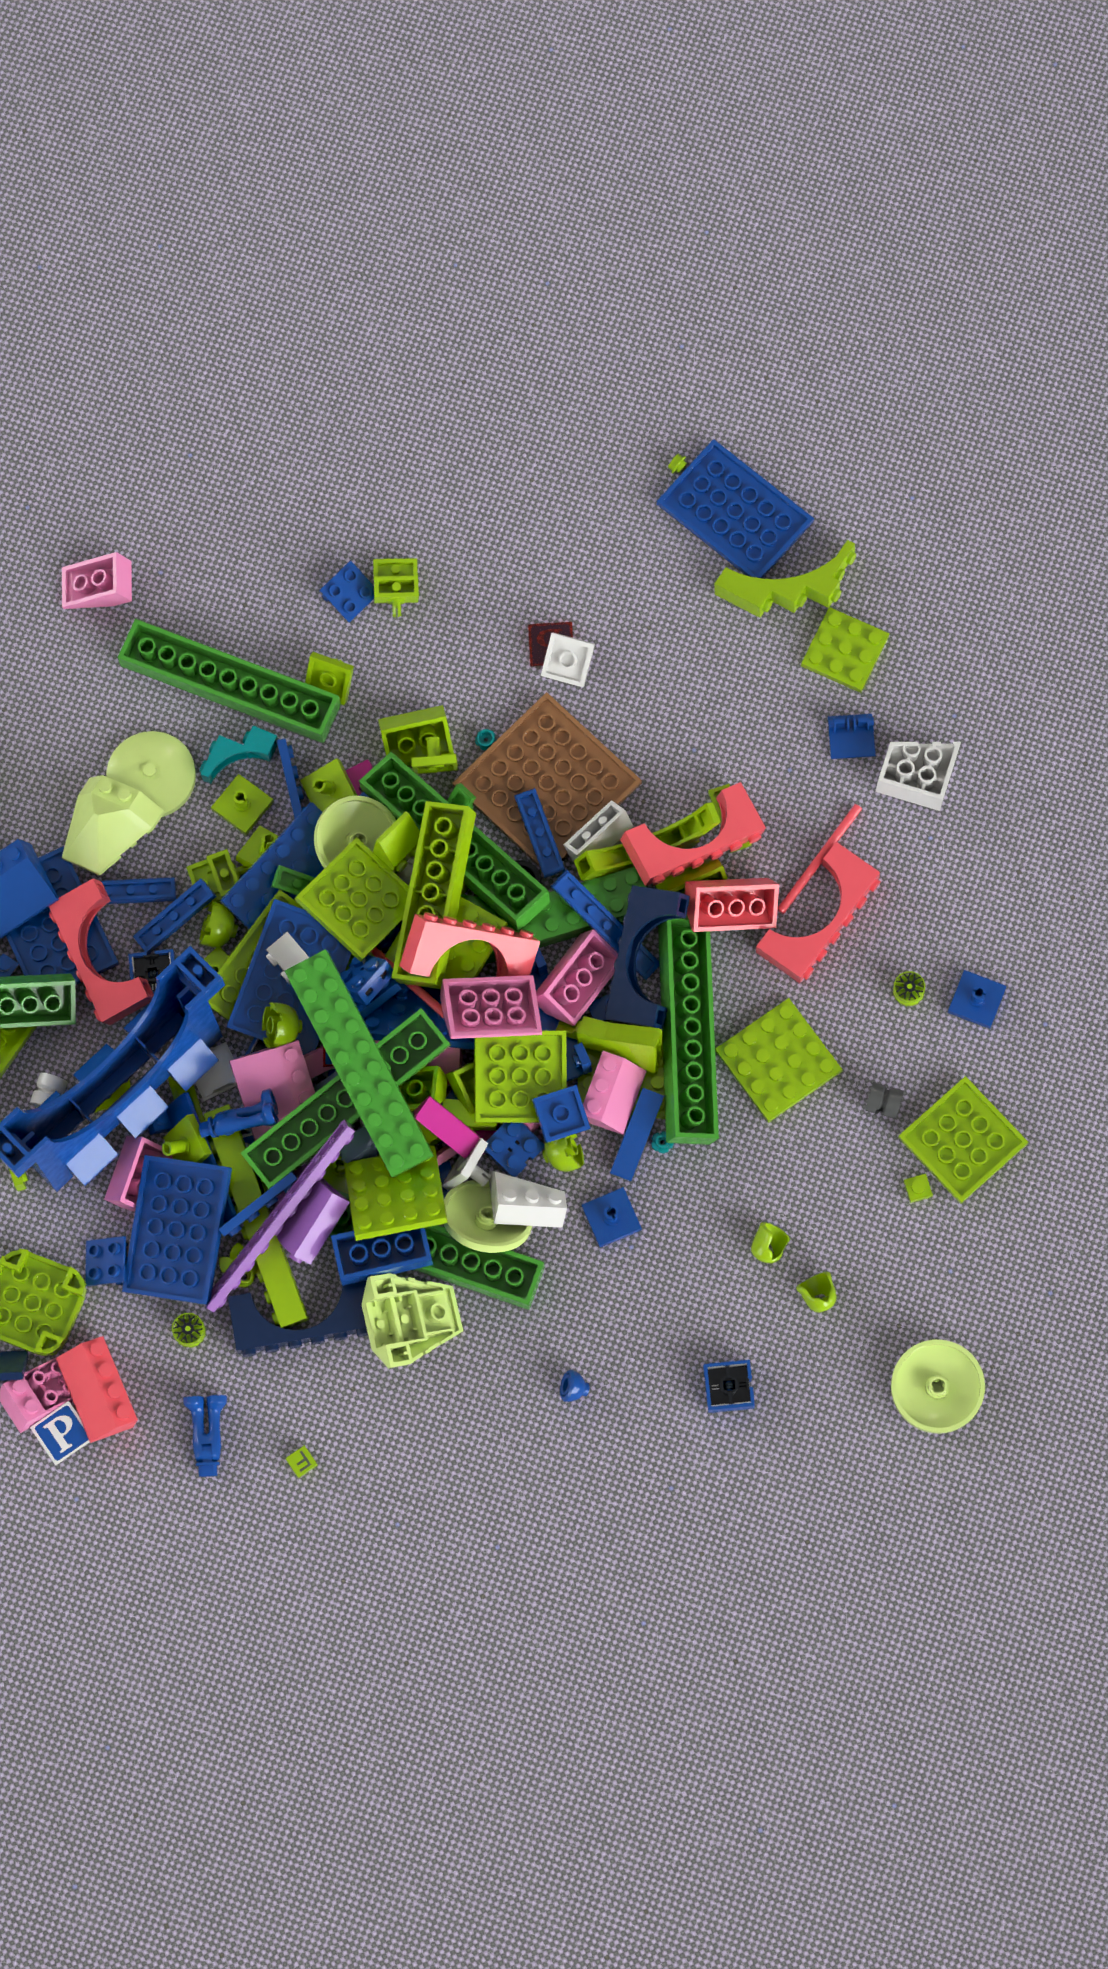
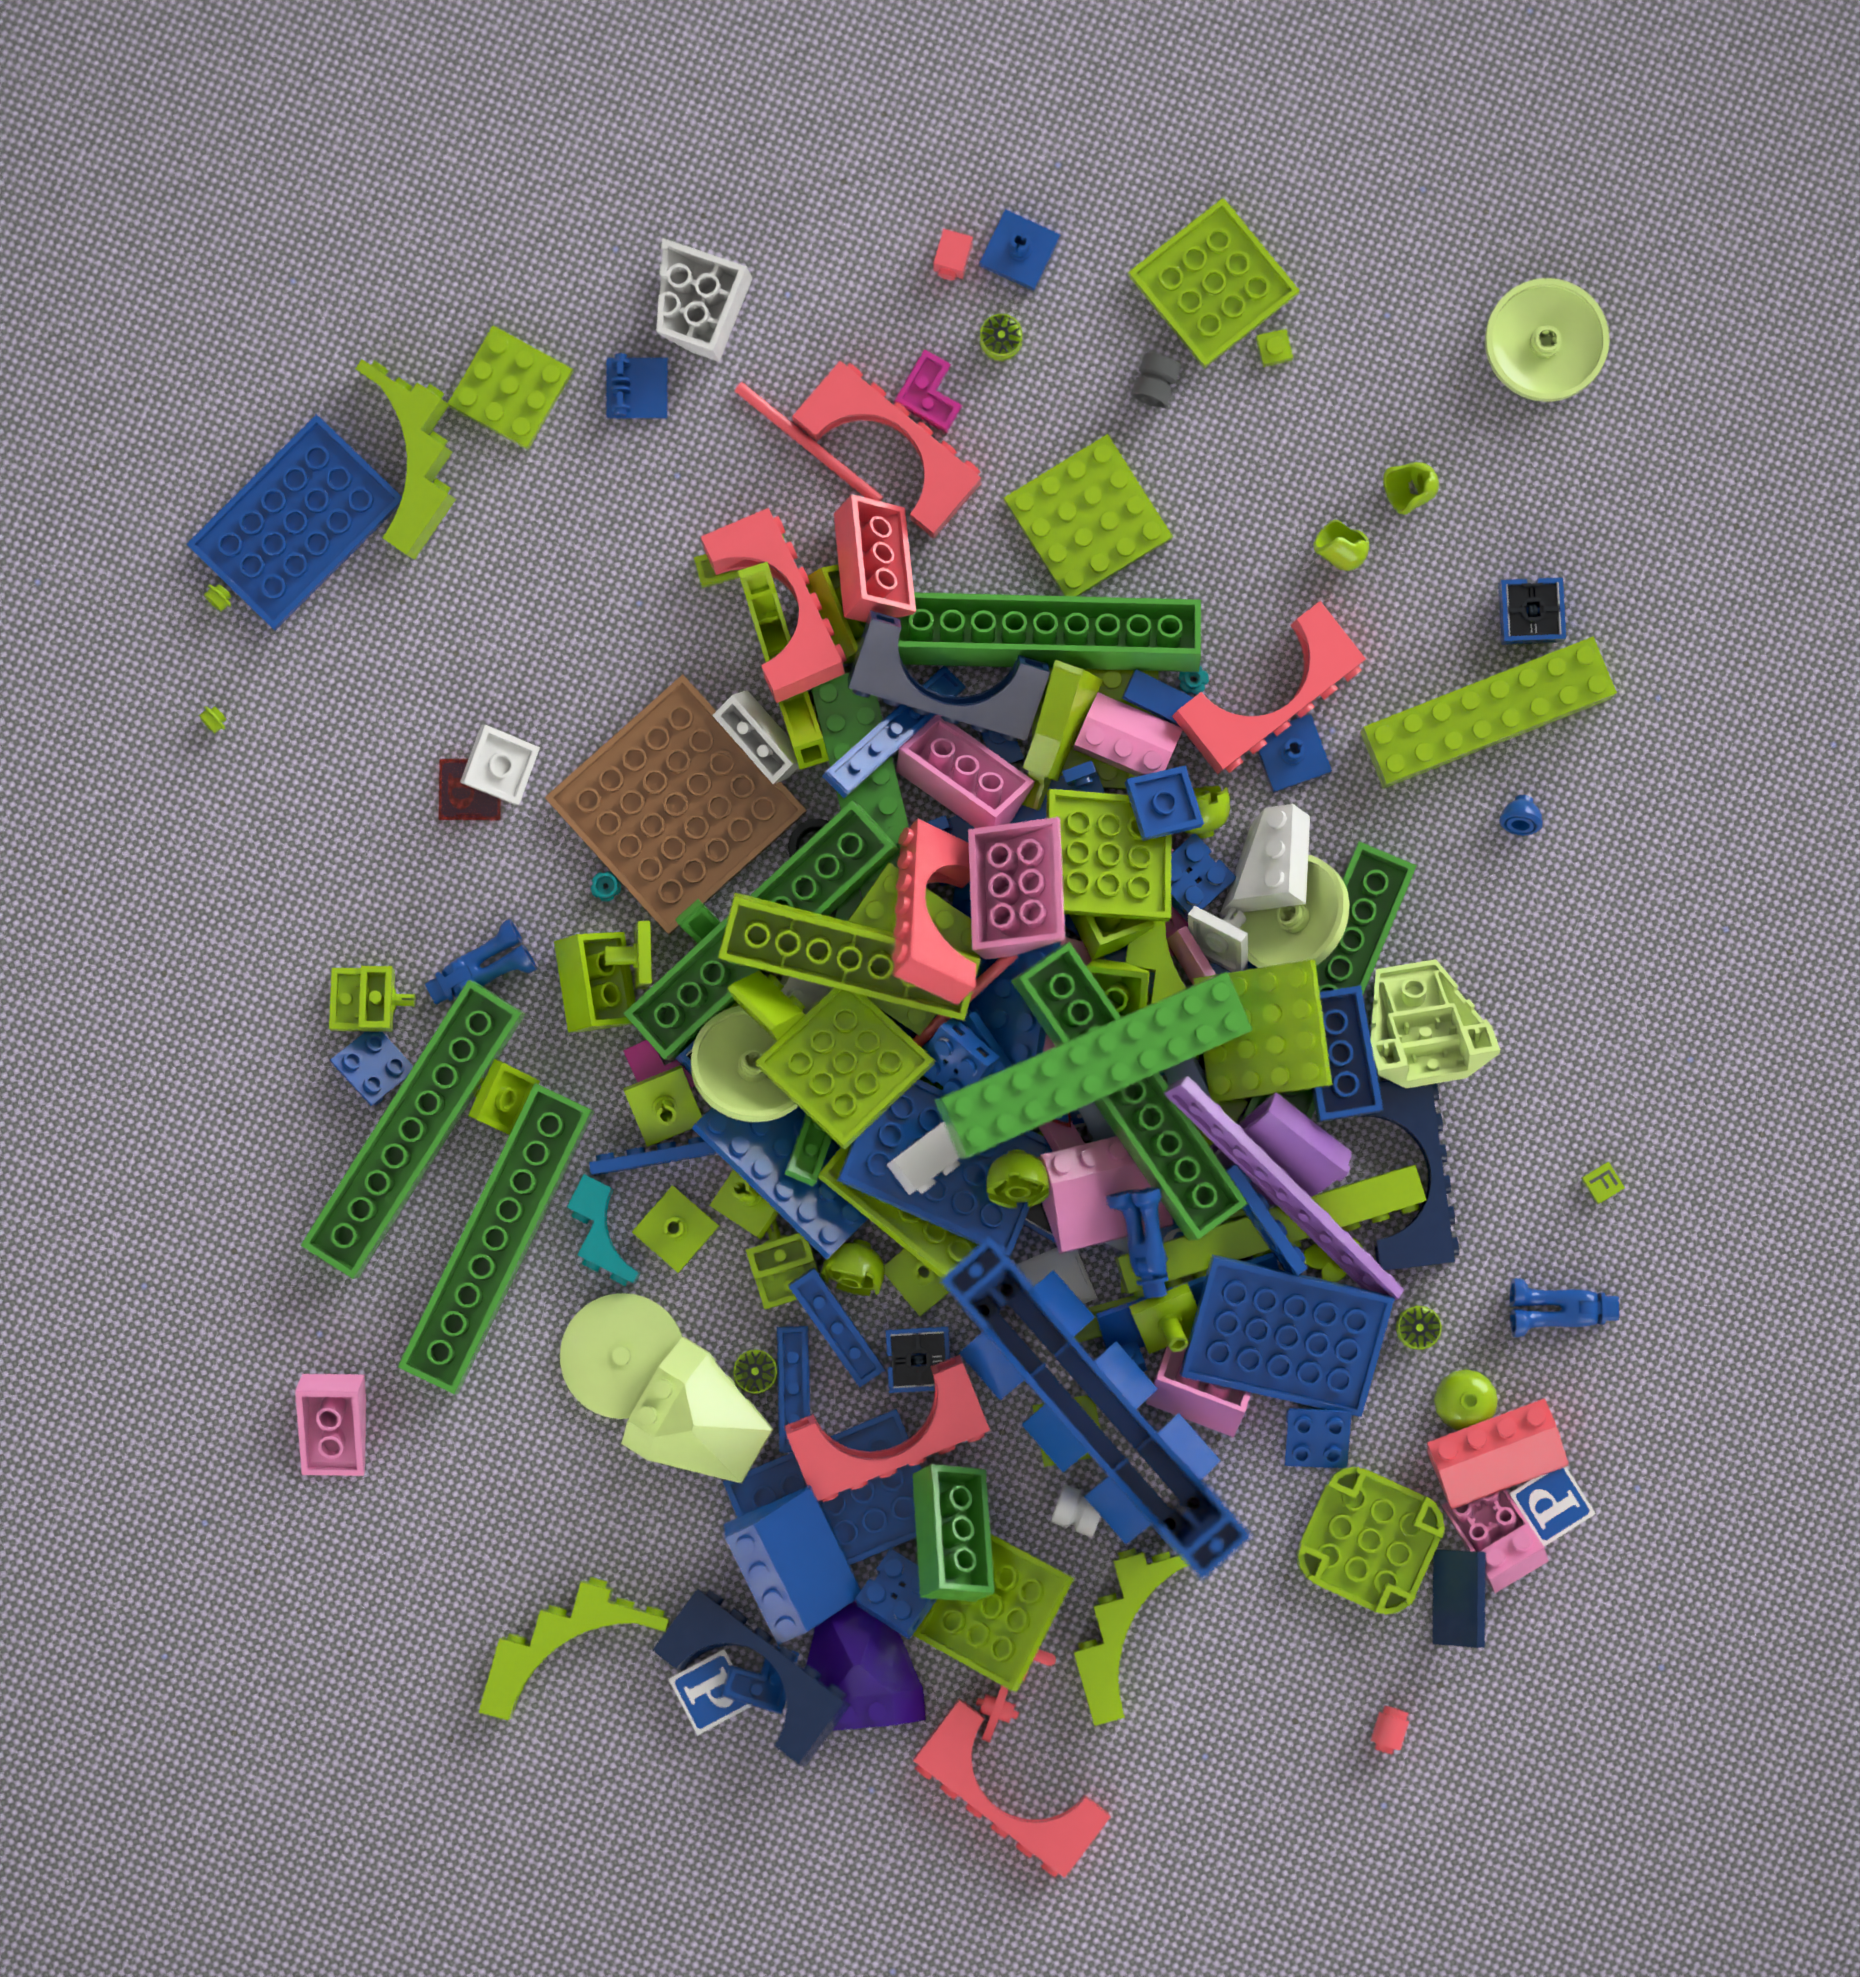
camera: 90 degrees left, 10 degrees up
(137, 1368) = (1465, 1399): none -> lime cylinder
(142, 863) = (755, 1371): none -> lime wheel
(303, 618) = (412, 1129): none -> bright green brick
(415, 649) = (468, 967): none -> blue piece
(446, 1126) = (1174, 958): dark pink slope -> none
(539, 833) = (750, 817): blue tile -> none
(590, 467) = (213, 719): none -> lime plate
(649, 1357) = (1488, 712): none -> lime brick
(679, 1236) = (1228, 736): none -> coral arch
(862, 935) = (921, 396): none -> dark pink tile
(967, 949) = (952, 254): none -> coral brick

